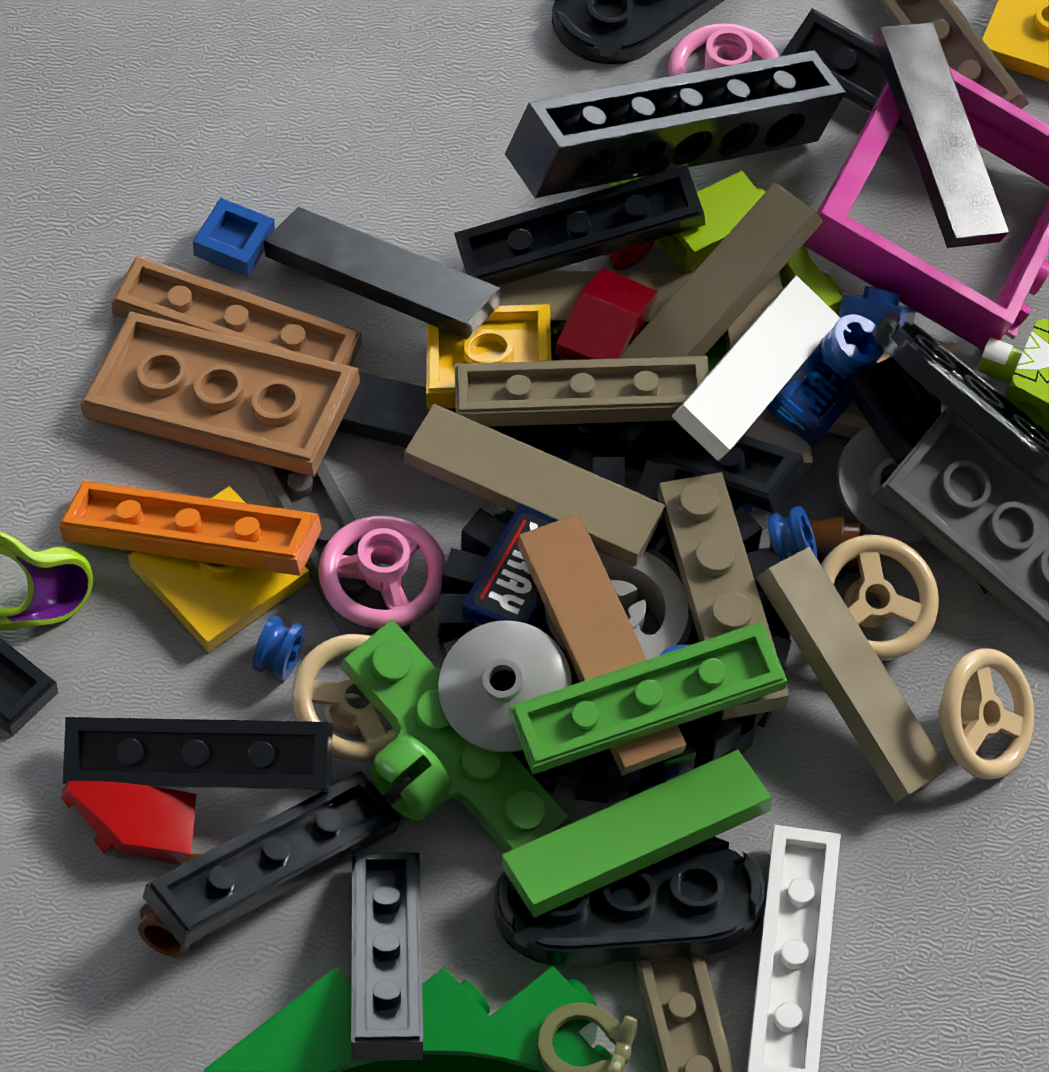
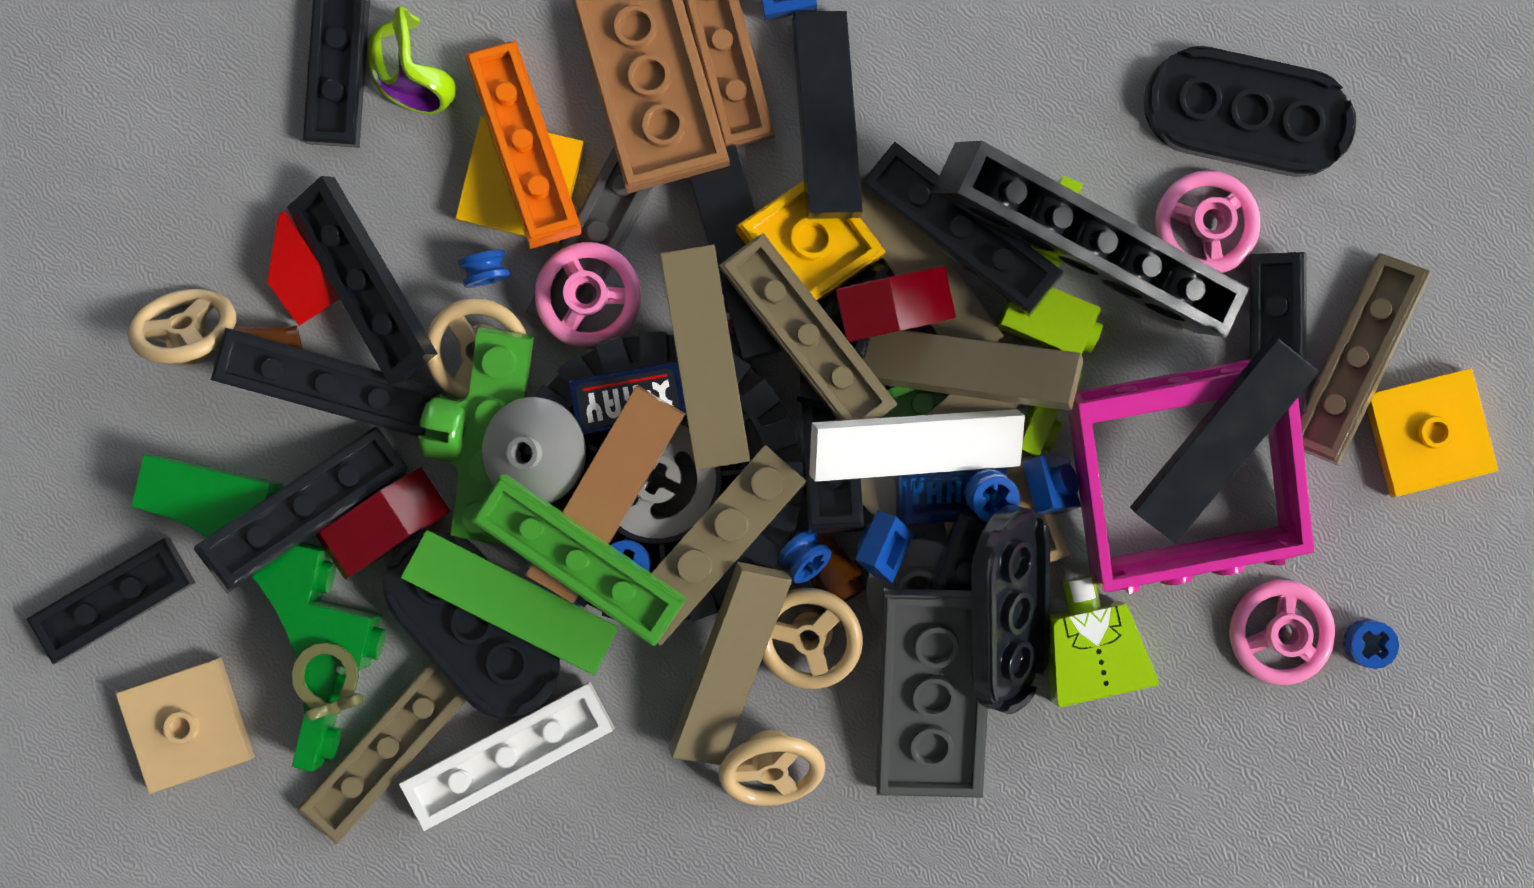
camera: 60 degrees right, 30 degrees up
(110, 960) = (184, 332): none -> tan piece
(459, 909) = (382, 523): none -> dark red slope
(832, 462) = (883, 546): none -> blue plate

